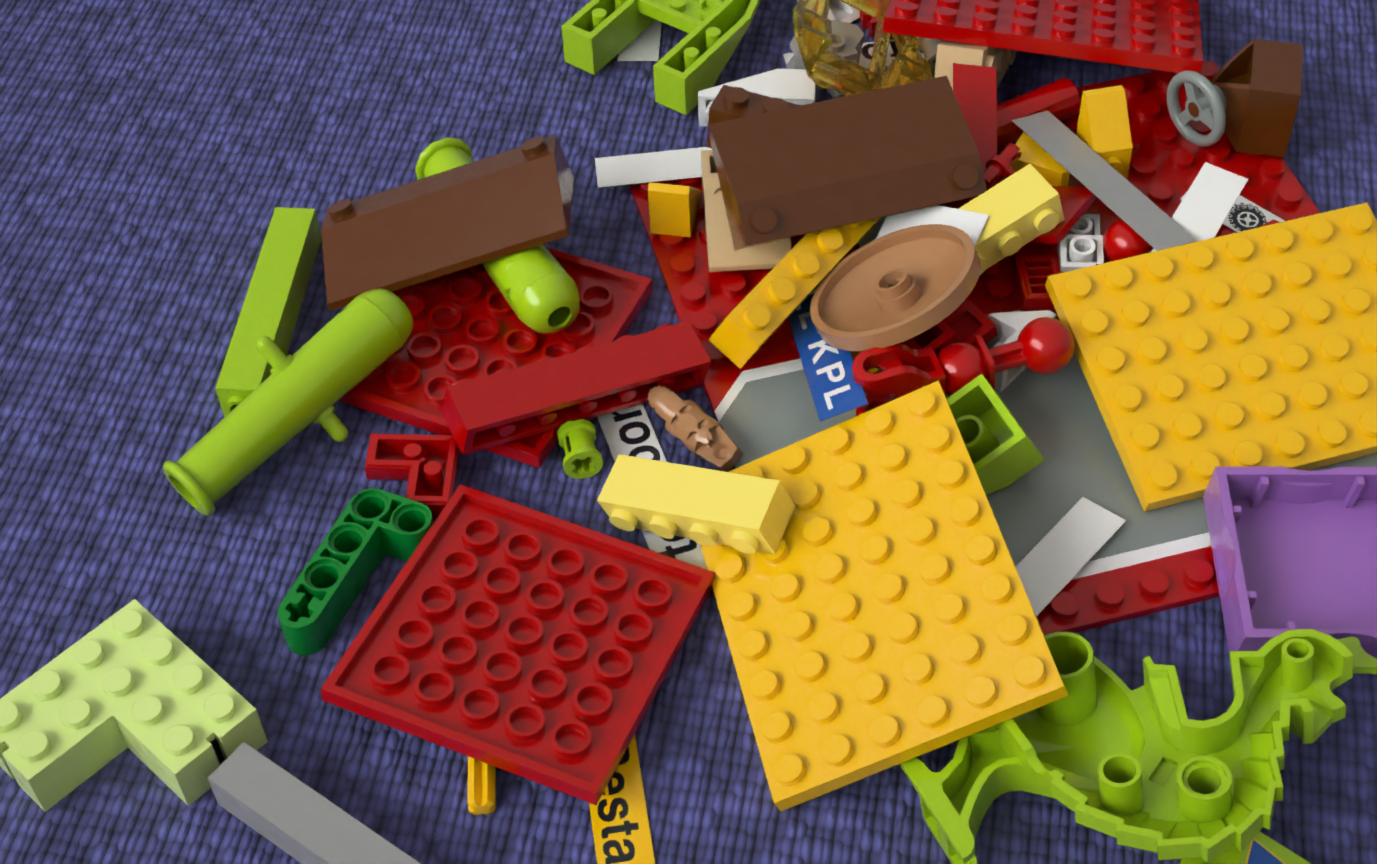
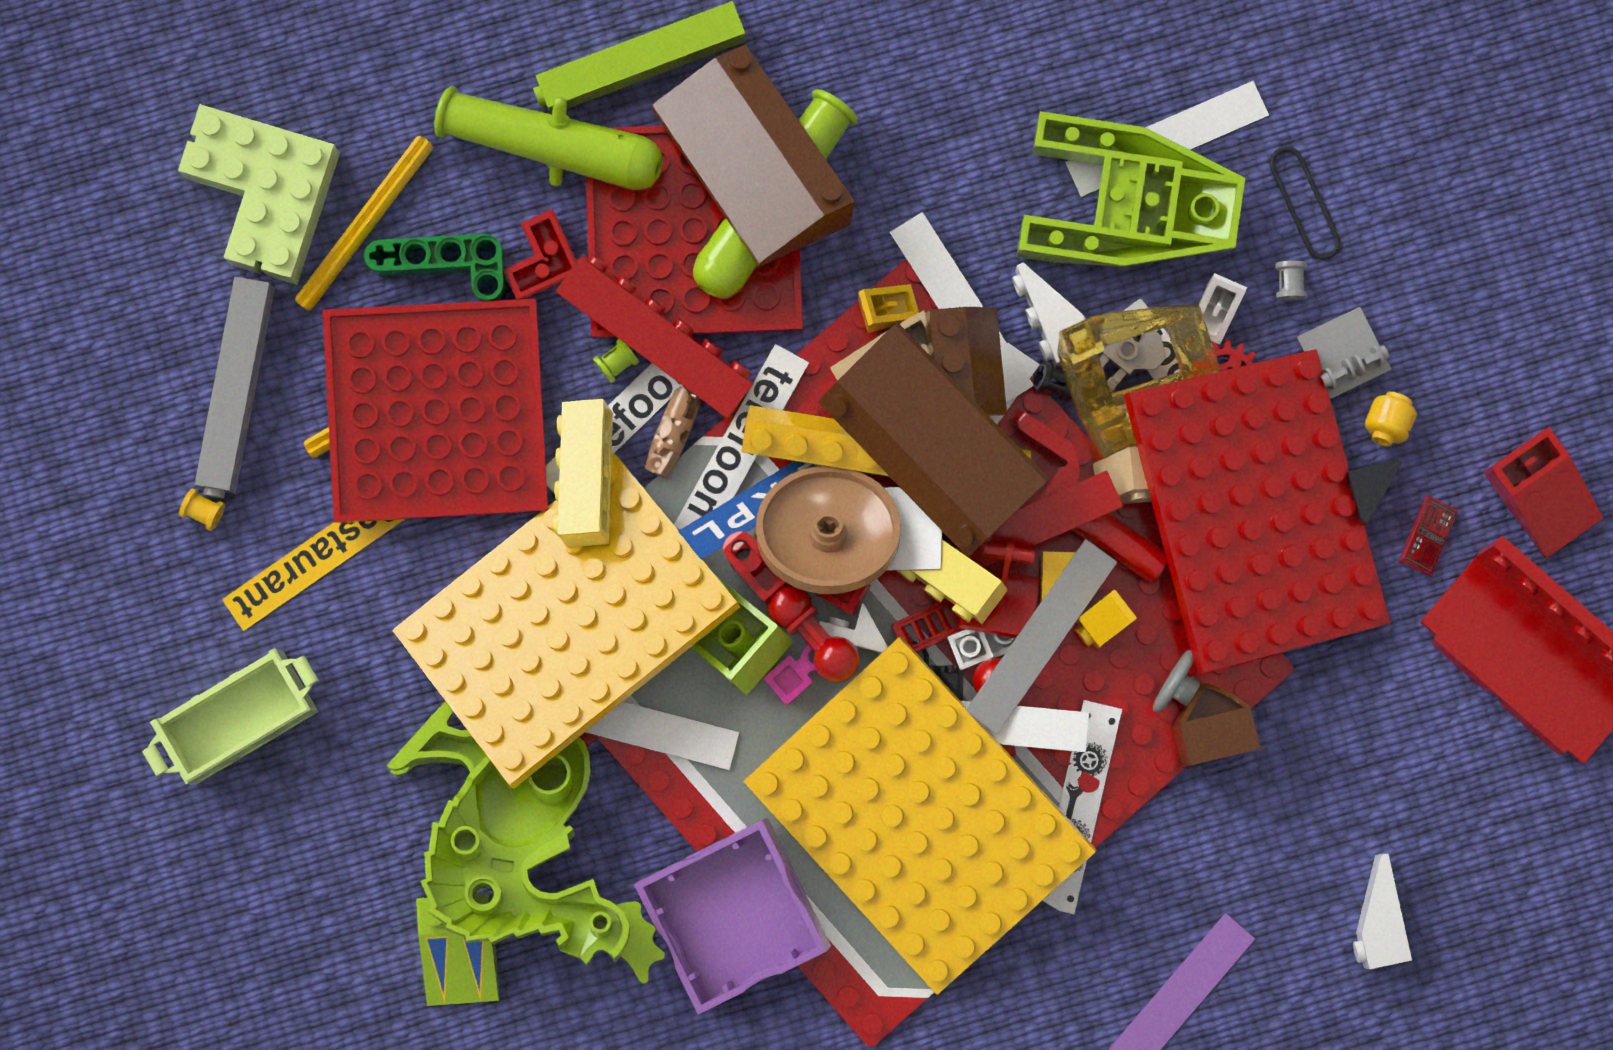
camera: 65 degrees right, 35 degrees up
(250, 638) = (364, 223): none -> yellow axle
(751, 385) = (728, 464): none -> white sticker
(1040, 416) = (791, 676): none -> dark pink plate

